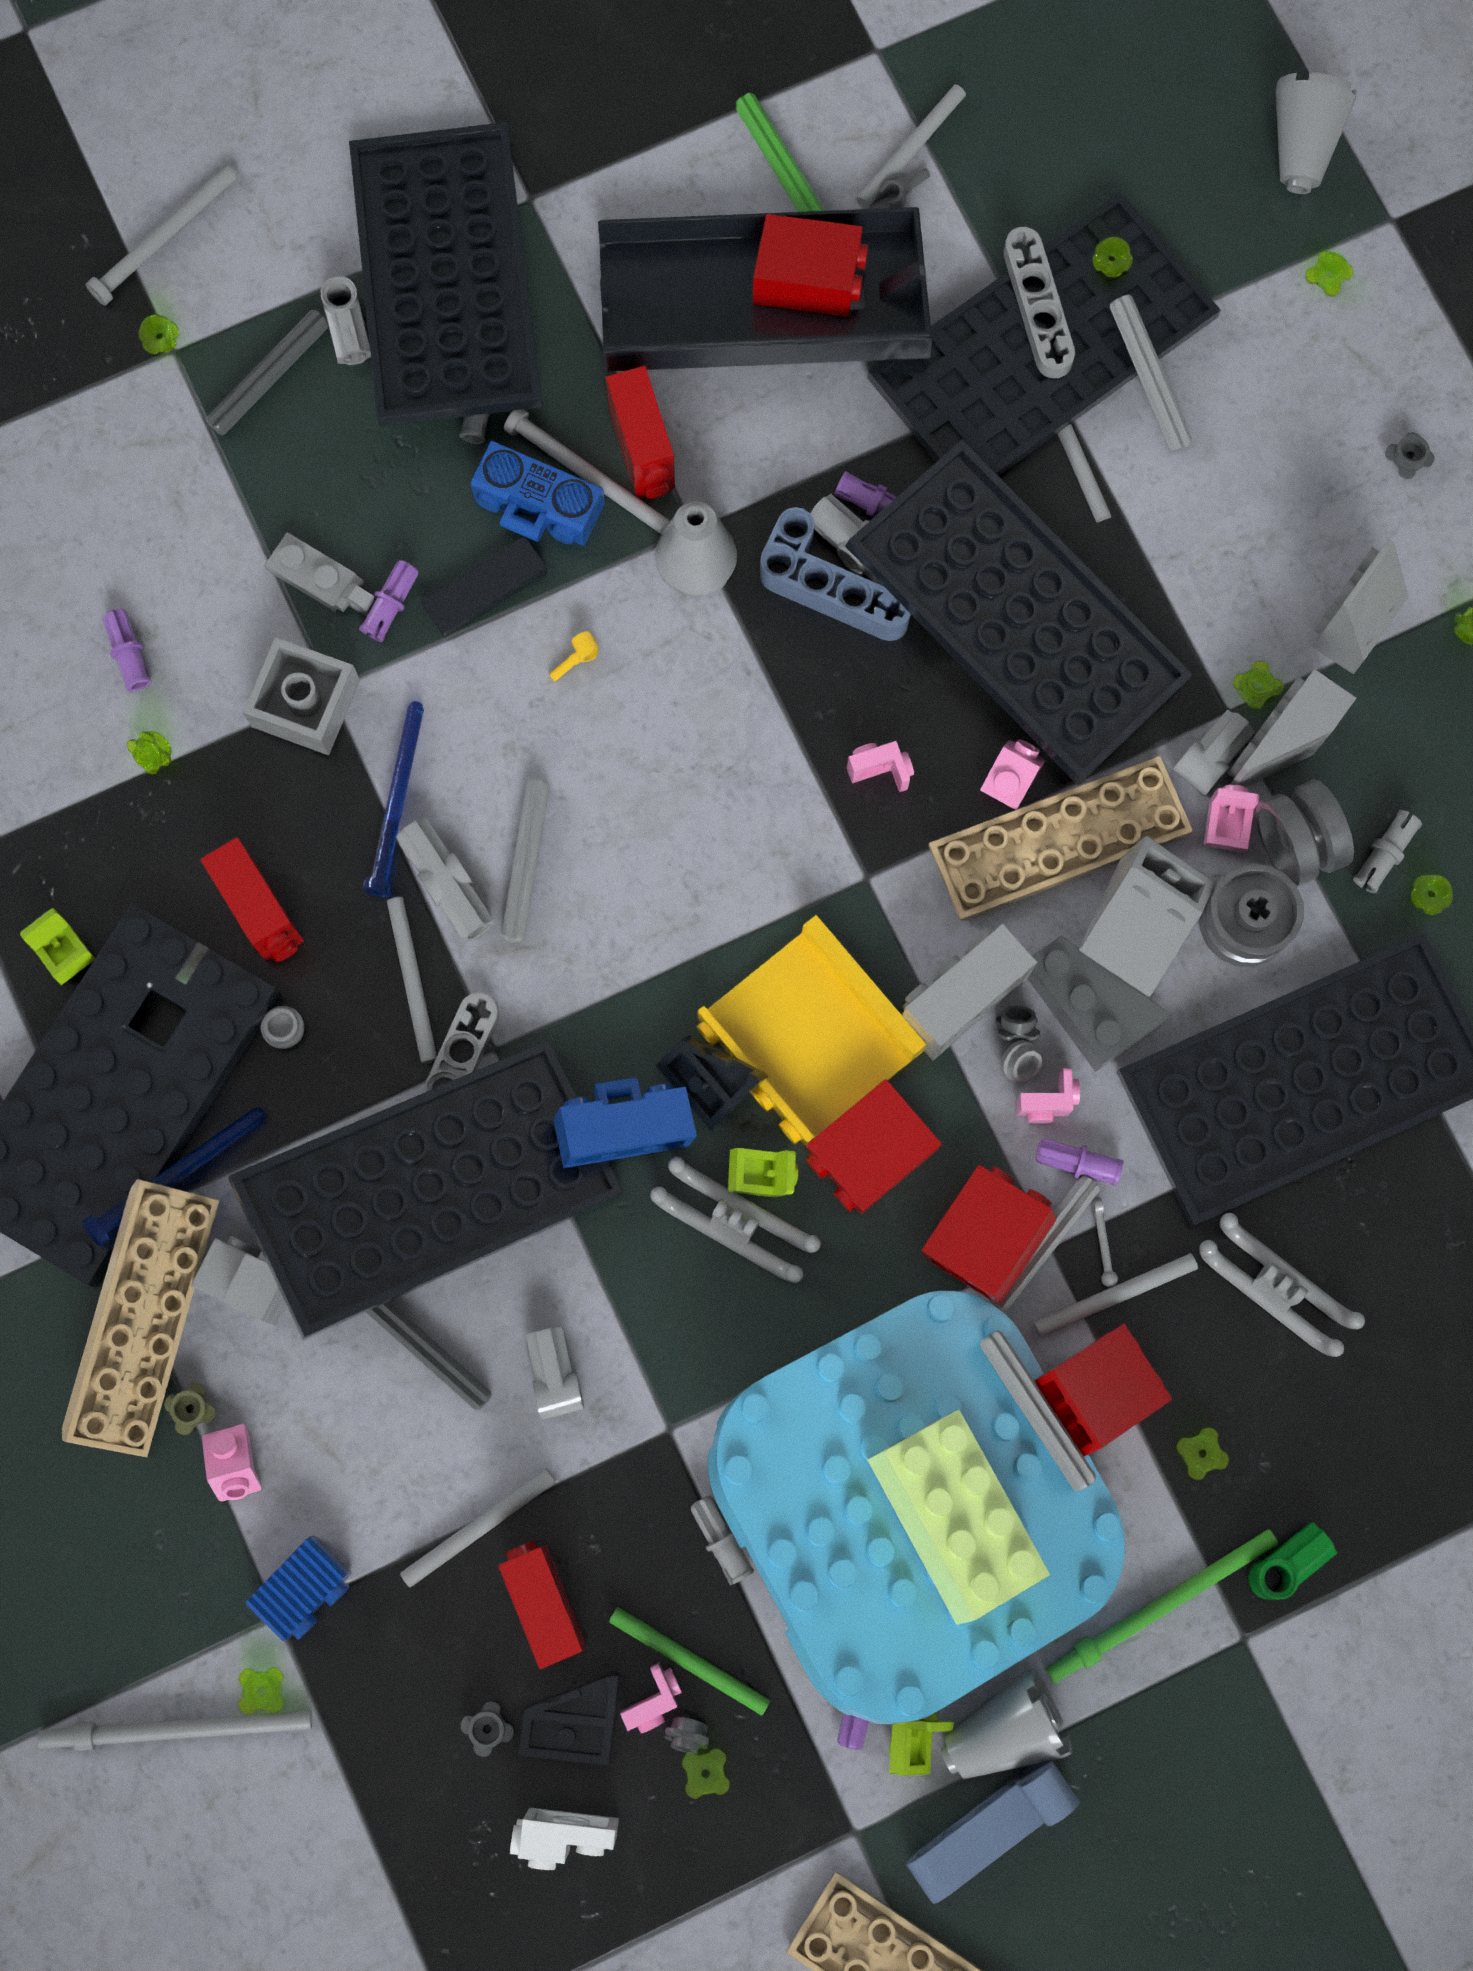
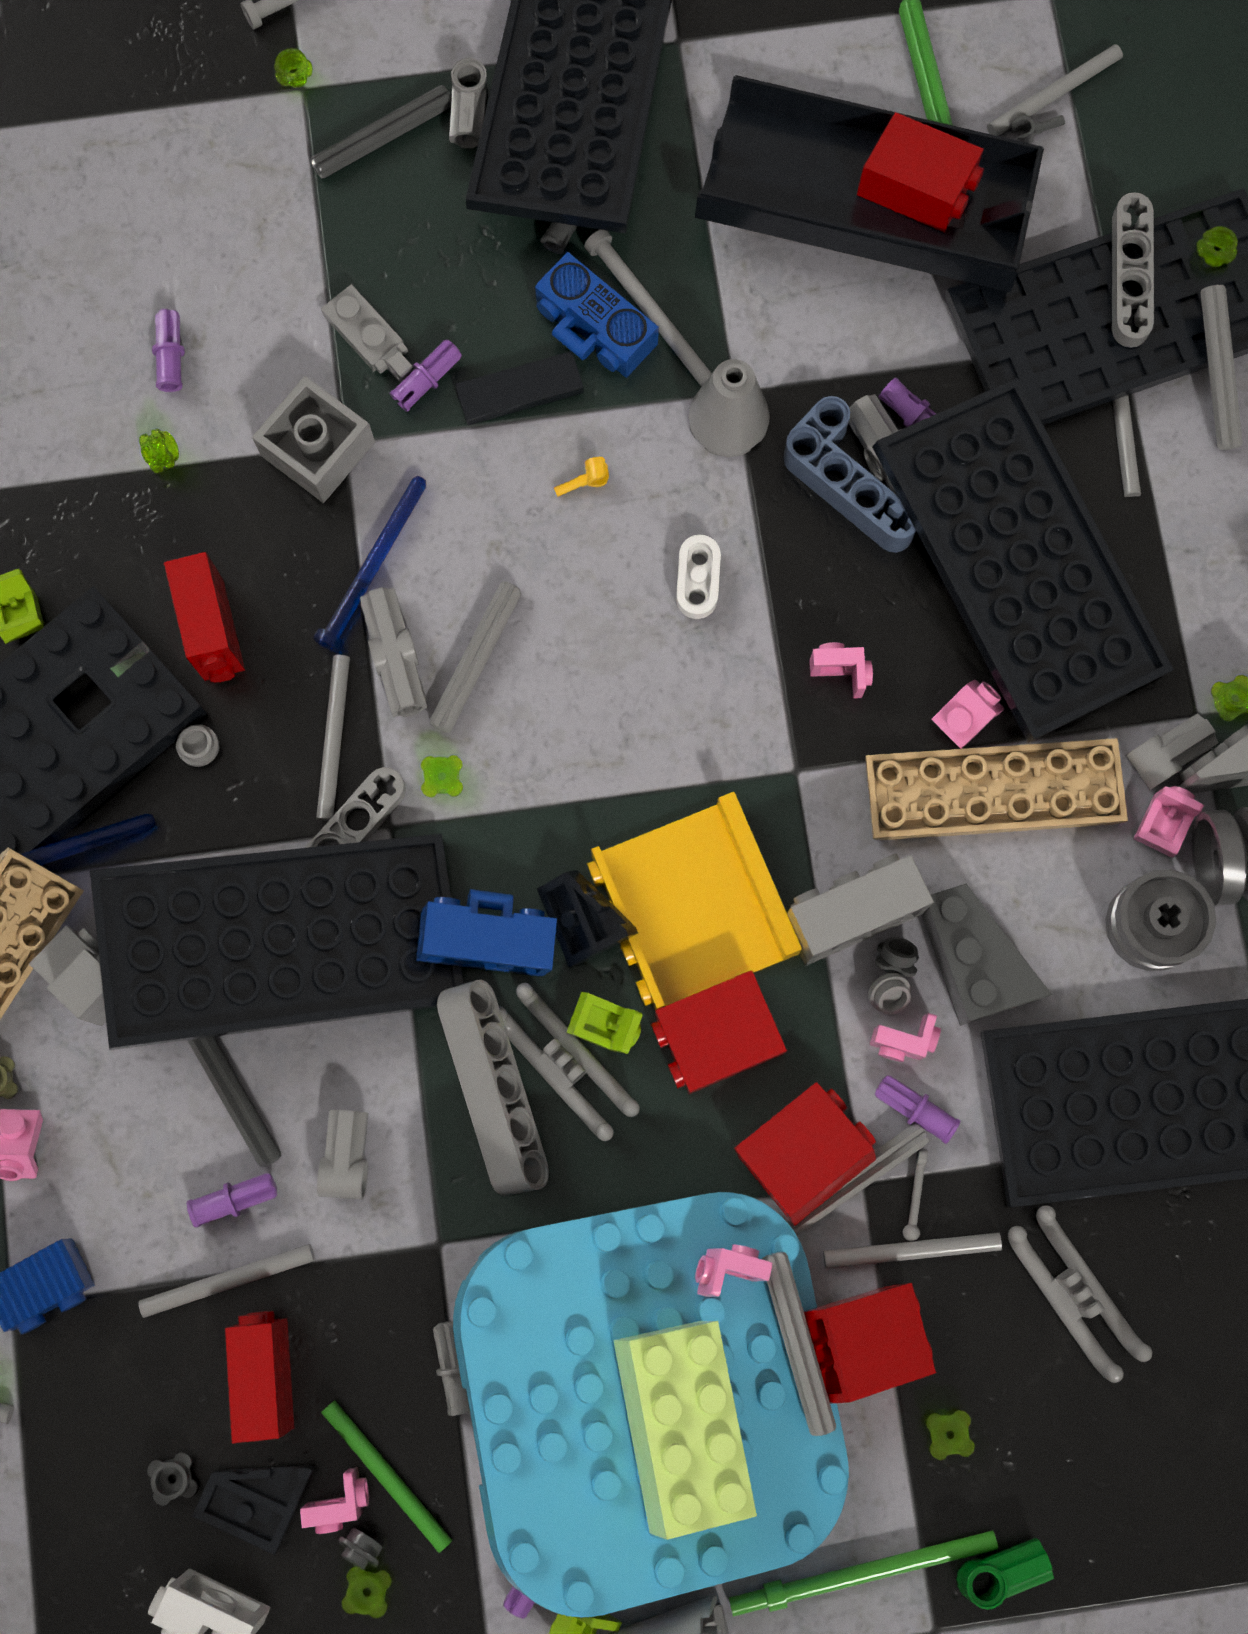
camera: 20 degrees right, 0 degrees up
(458, 1449) = (231, 1199): none -> medium lavender axle
(533, 973) = (433, 767): none -> clear neon green plate
(641, 433) = (711, 284): red brick -> none
(676, 1265) = (493, 1088): none -> light grey beam
(716, 721) = (698, 578): none -> white plate
(959, 1353) = (738, 1262): none -> bright pink bracket
(1146, 915) = (1056, 888): light grey slope -> none

